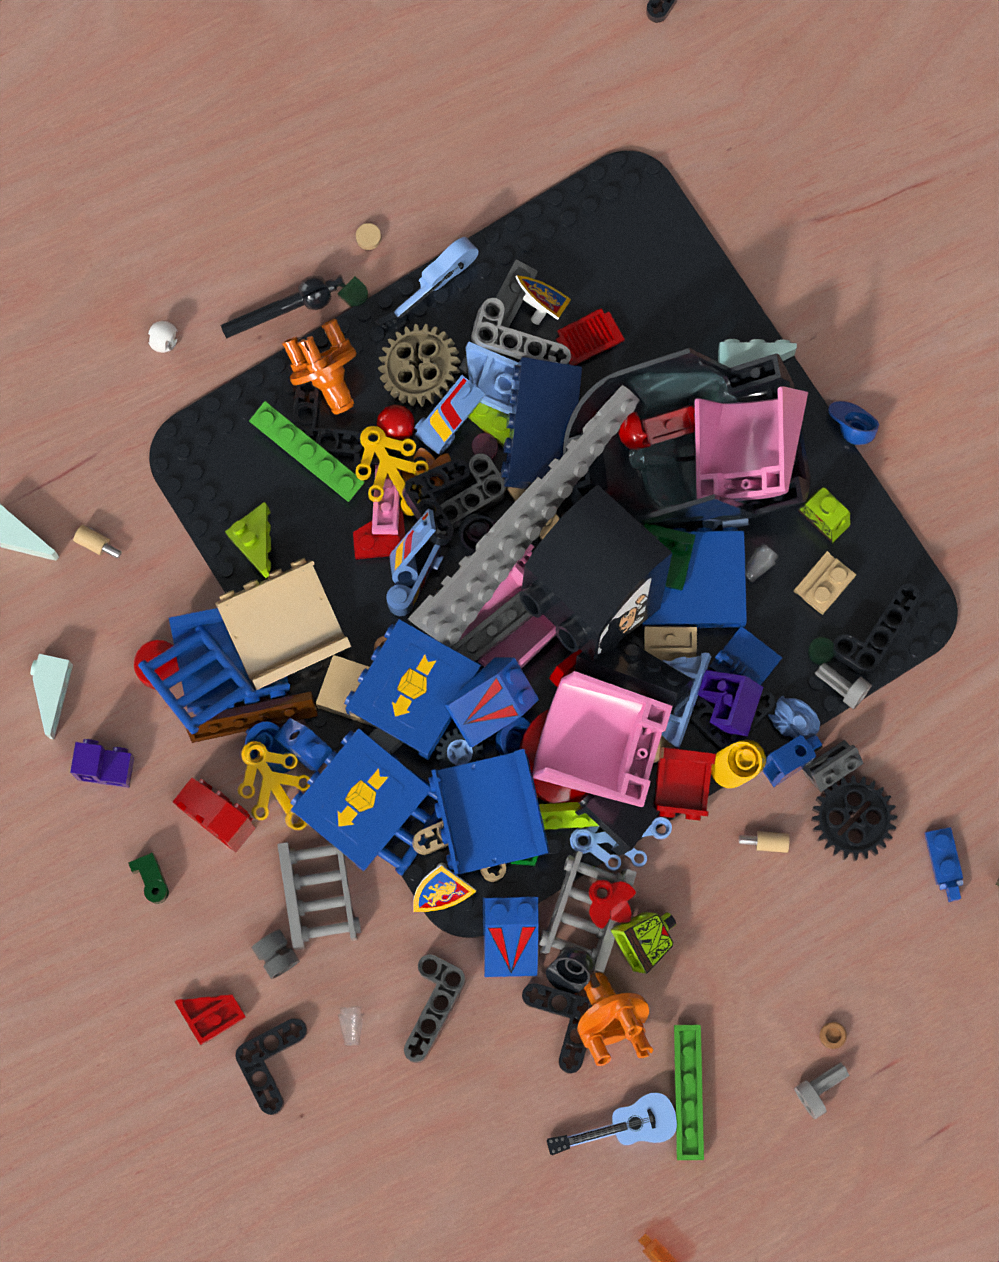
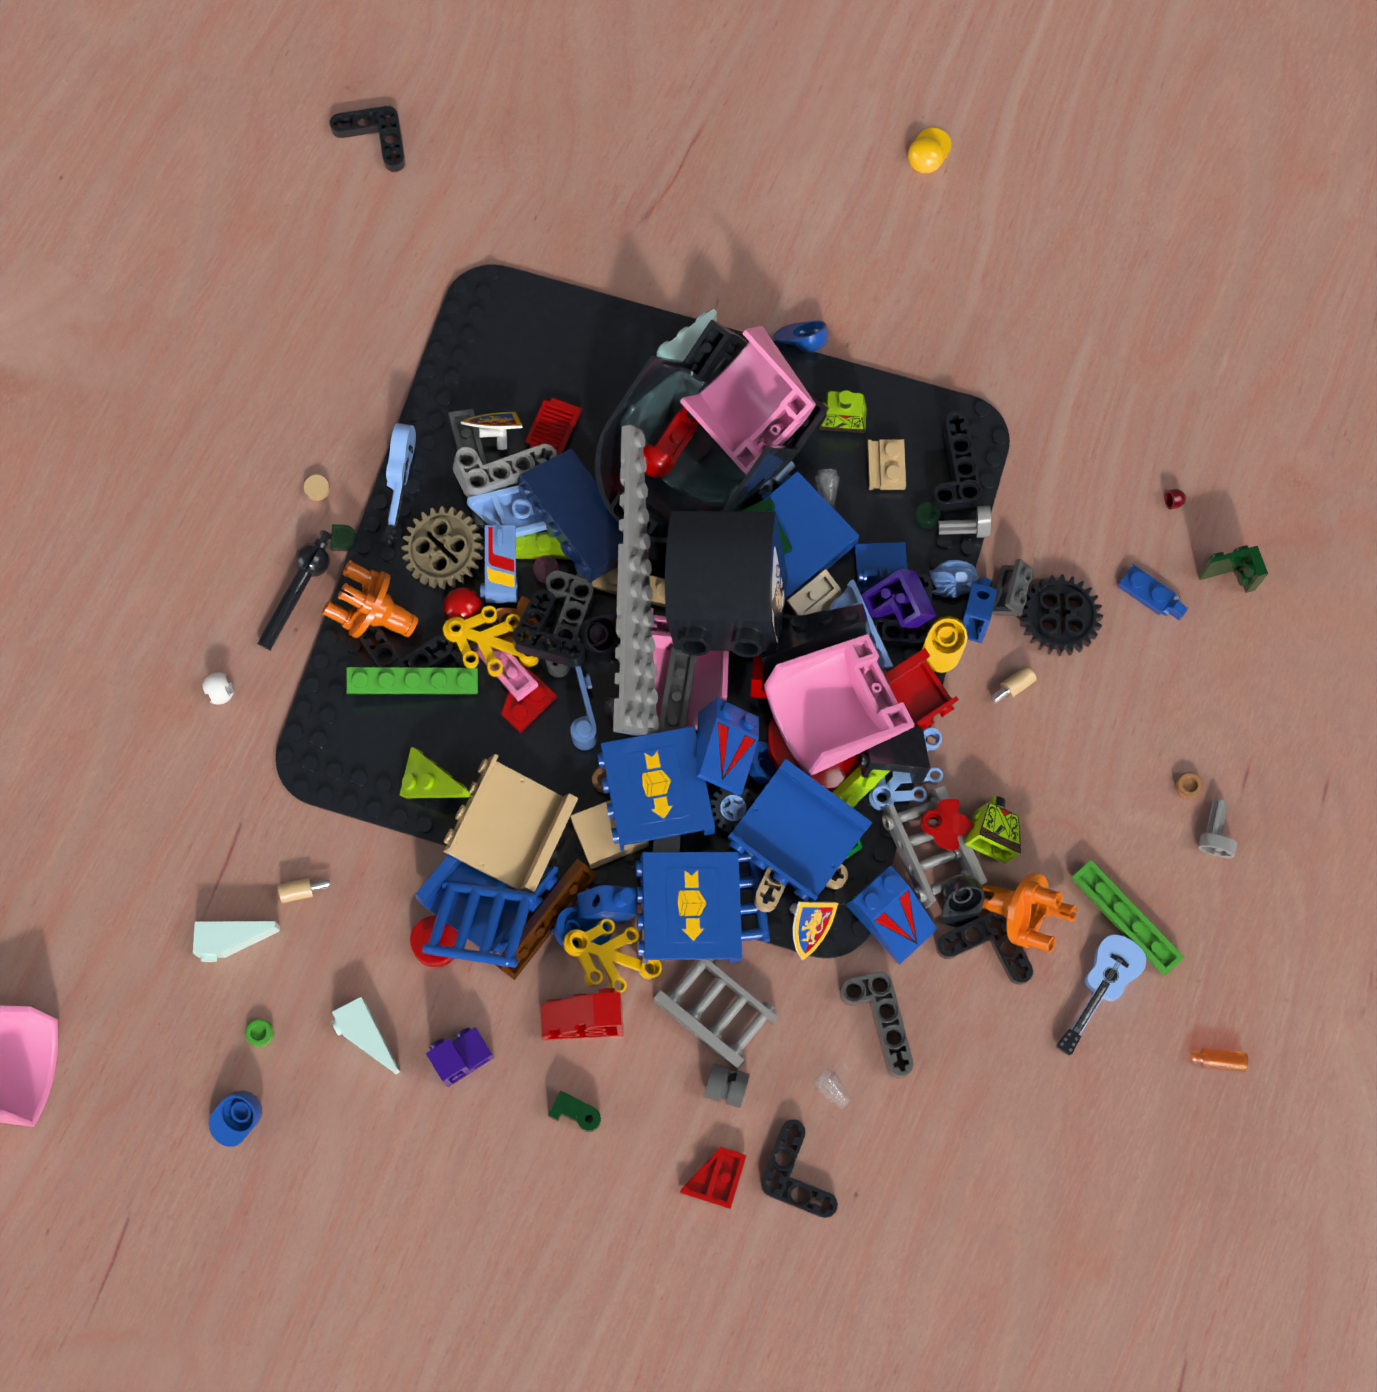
camera: 45 degrees left, 5 degrees down
(403, 556) = (558, 684): medium blue door -> none

